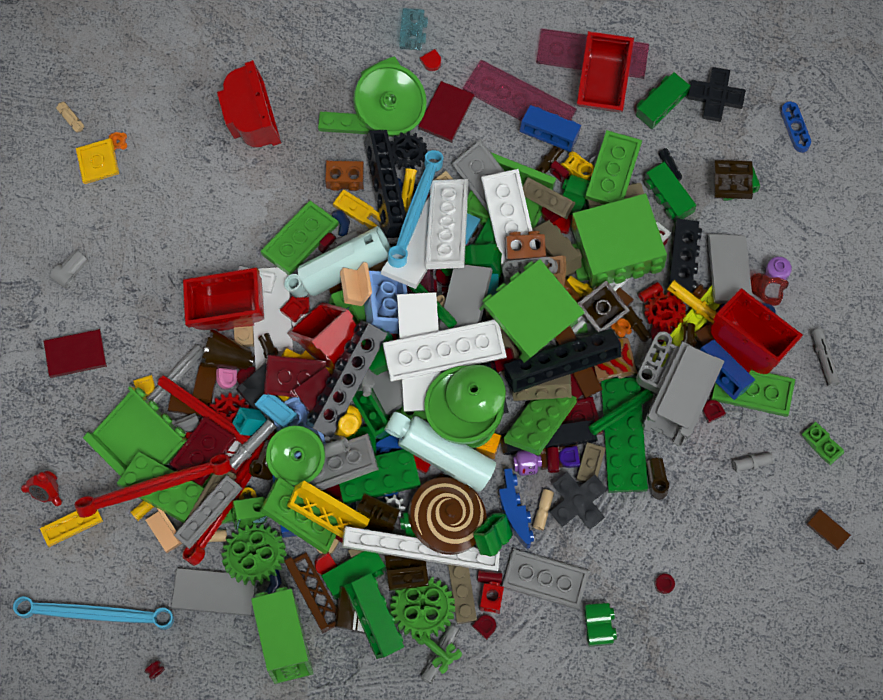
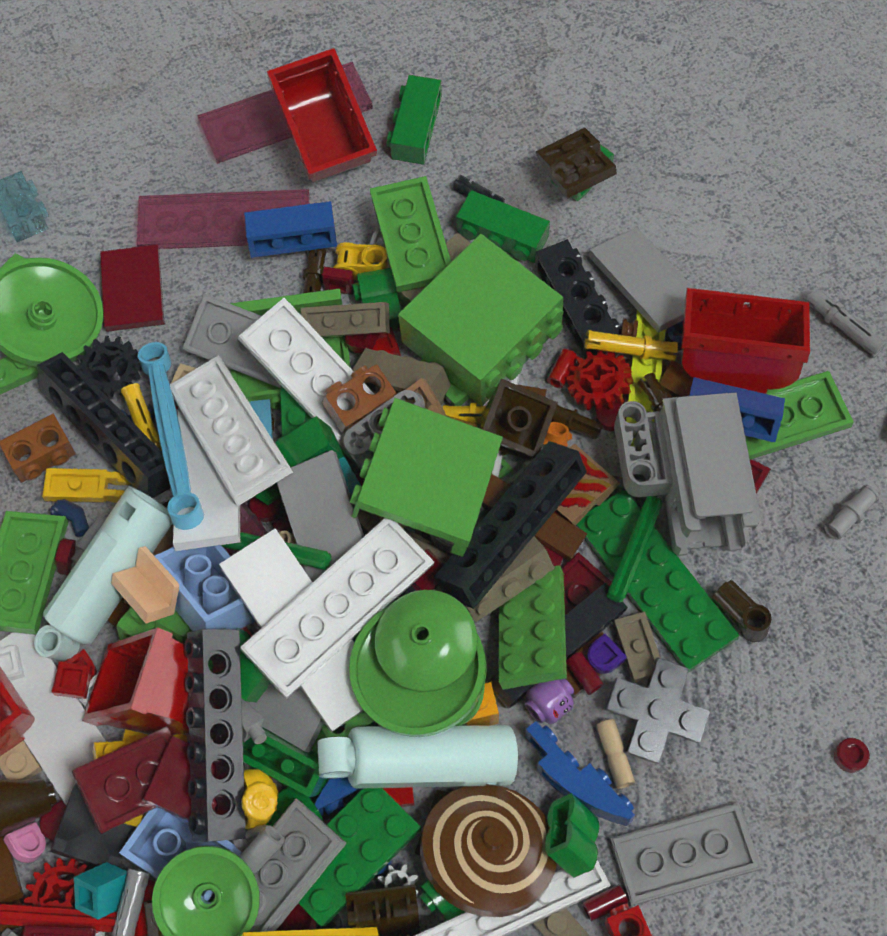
camera: 30 degrees left, 5 degrees down
(268, 346) = (64, 757): dark brown pin -> none
(276, 410) = (133, 847): medium azure tile -> none
(431, 60) = (71, 233): red tile -> none
(599, 624) = (807, 874): green brick -> none
(716, 94) = (480, 76): black plate -> none
(759, 283) = (698, 272): clear red piece -> none
(778, 267) = (709, 245): medium lavender head -> none
(794, 135) = (610, 74): blue beam -> none

